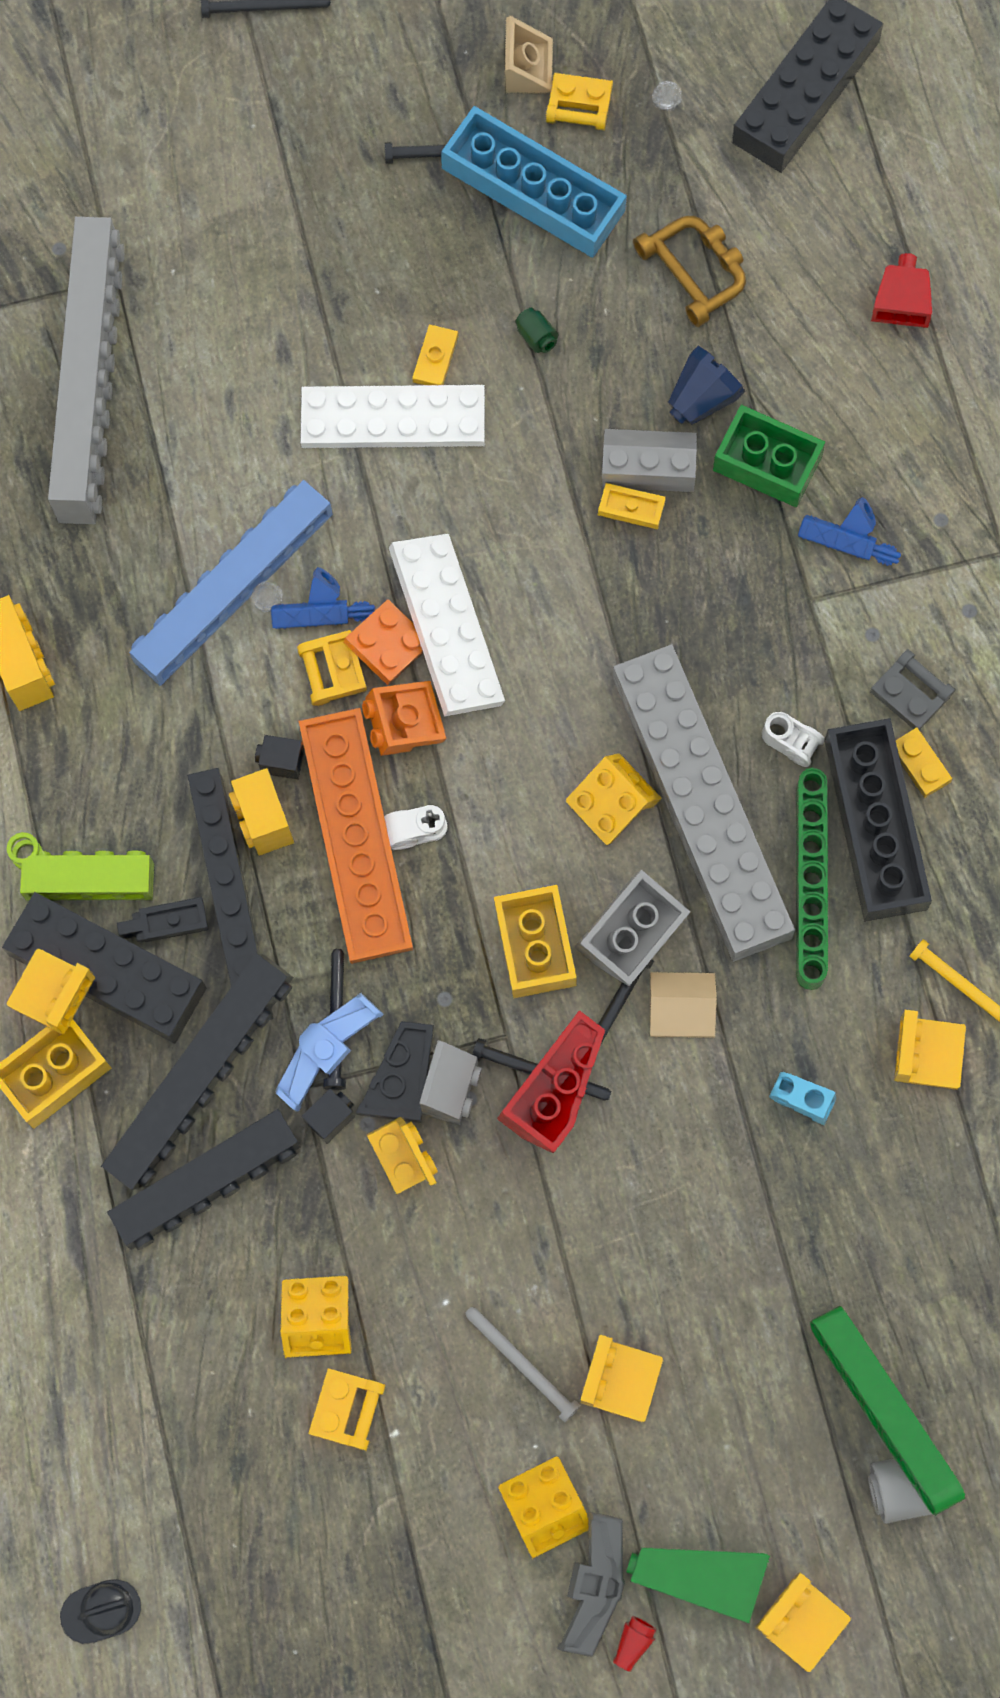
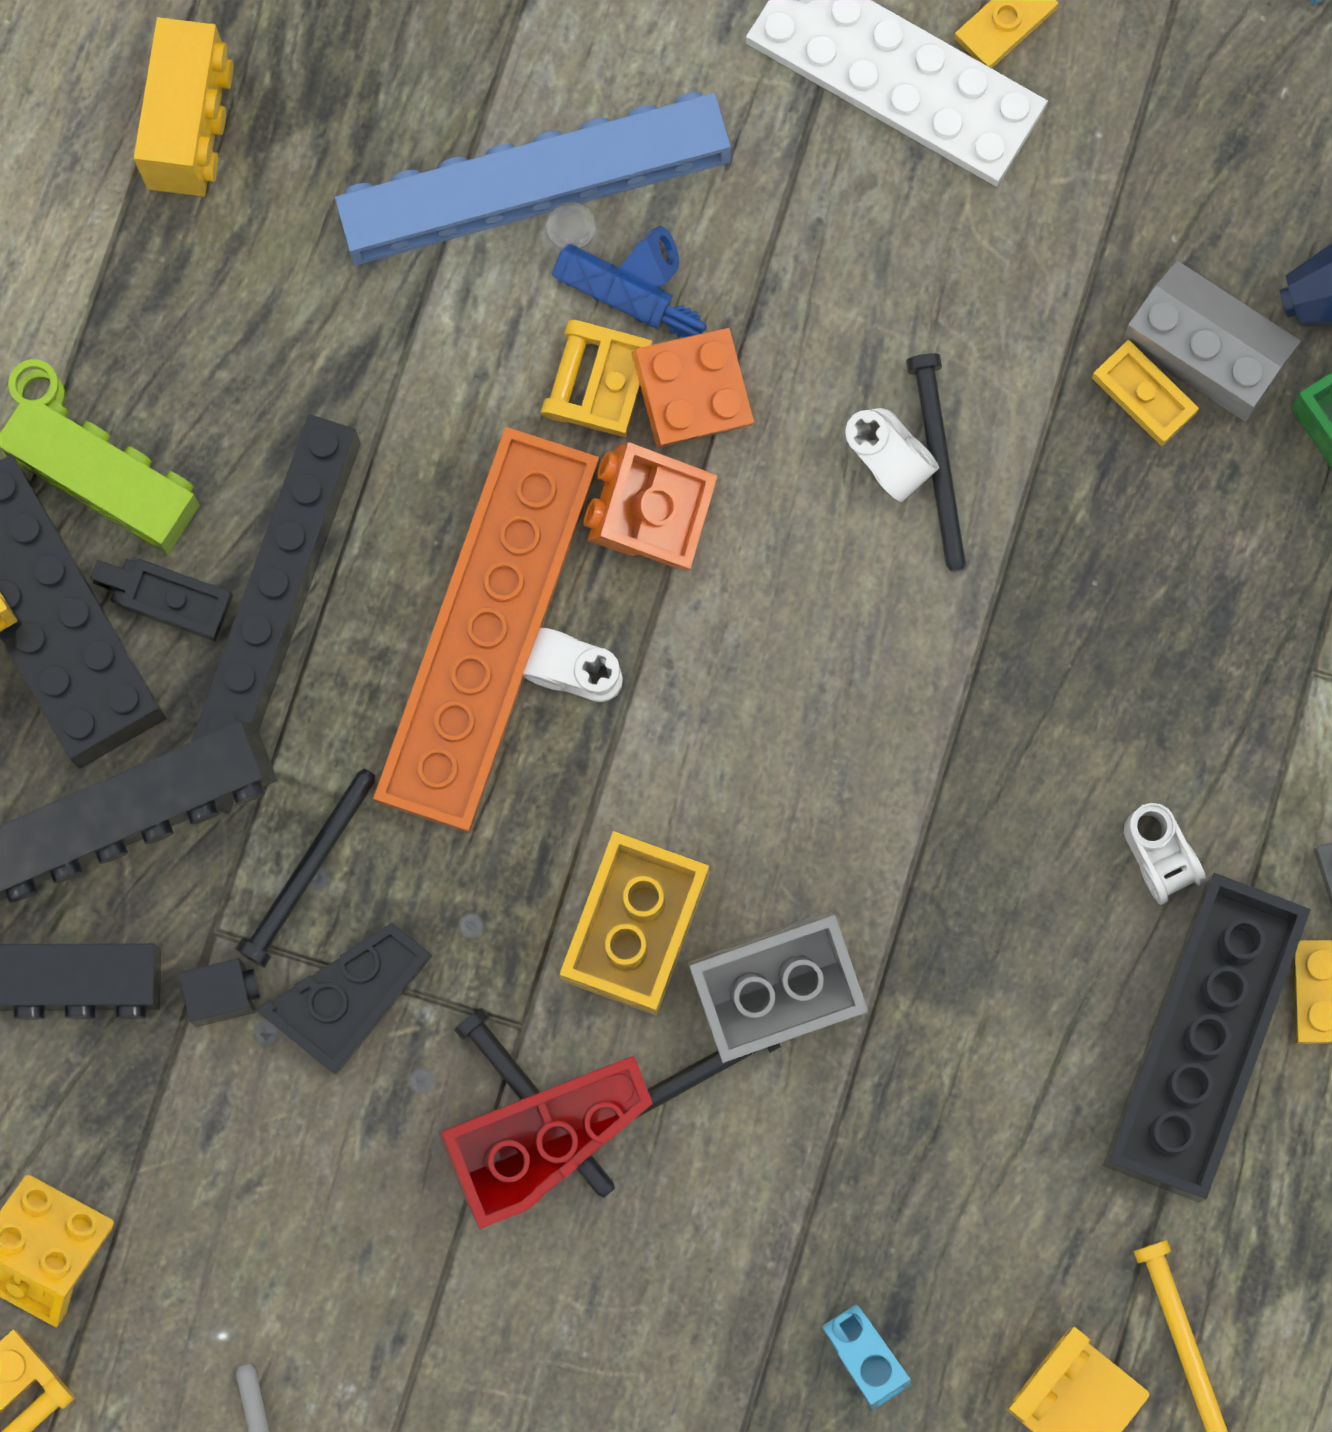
camera: 30 degrees right, 5 degrees up
(259, 805) = (376, 524): yellow brick -> none
(280, 756) = (451, 461): black brick -> none
(324, 1048) = (266, 896): light blue plate -> none
(400, 1156) = (279, 1104): yellow bracket -> none
(446, 624) = (787, 410): white plate -> none
(449, 1084) = (401, 1048): light grey slope -> none
(506, 561) = (924, 368): none -> black bar
(521, 614) = (896, 457): none -> white piece
(536, 330) = (1168, 65): dark green brick -> none
(612, 797) = (865, 786): yellow bracket -> none
(682, 1005) = (783, 1128): tan slope -> none
(703, 803) = (982, 868): light grey brick -> none
(811, 893) = (1084, 1045): green beam -> none

